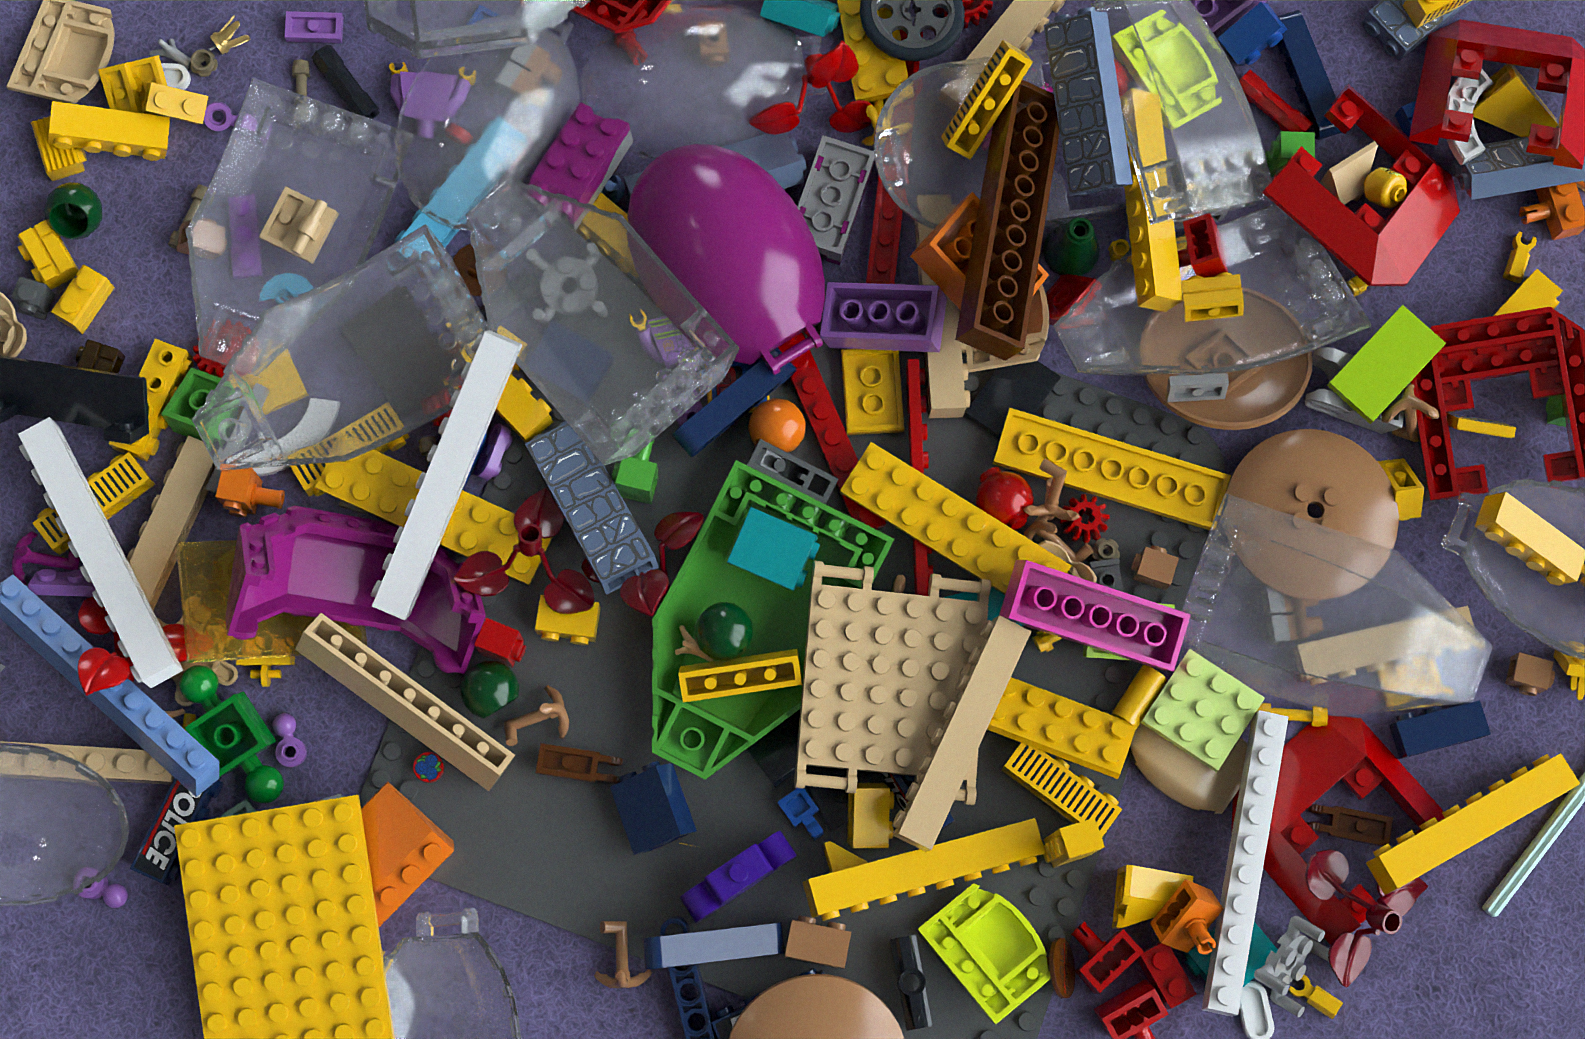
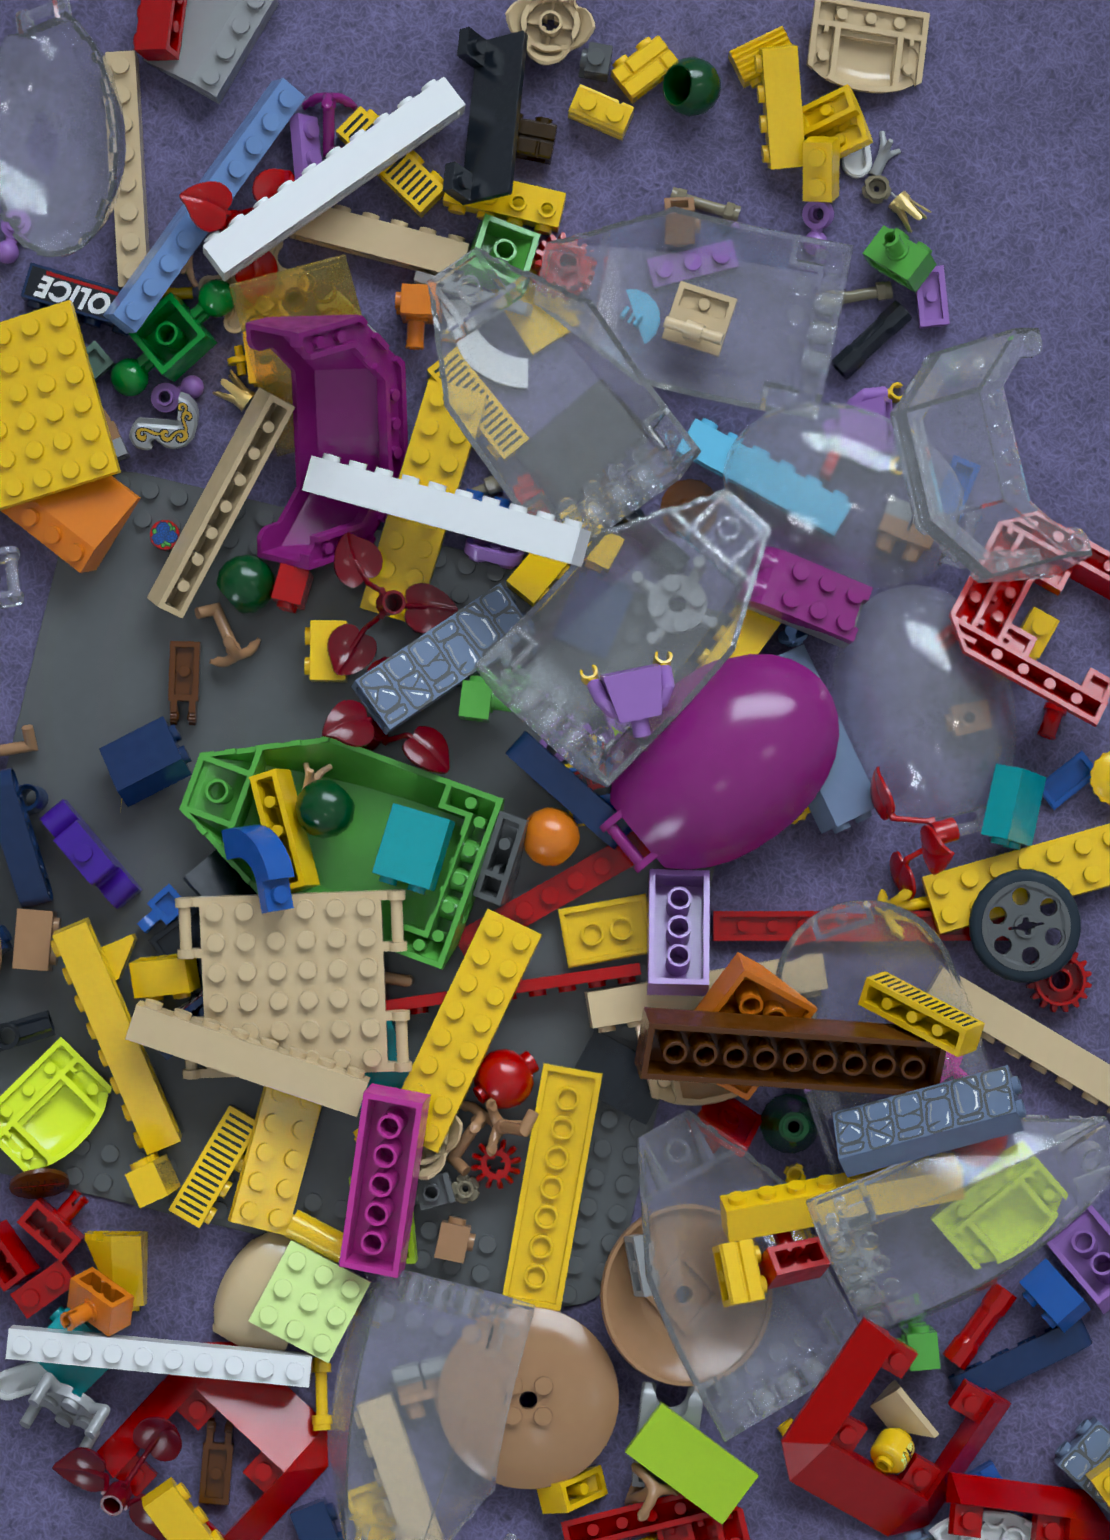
camera: 90 degrees right, 10 degrees up
(272, 45) = (900, 258): none -> bright green brick
(300, 674) = (240, 395): none -> pearl gold piece
(327, 749) = (167, 432): none -> light grey animal
(651, 313) = (633, 693): none -> medium lavender torso
(766, 687) = (268, 861): none -> blue arch
(835, 194) = (810, 866): light grey piece -> none
(1318, 998) = (41, 1442): yellow bar -> none

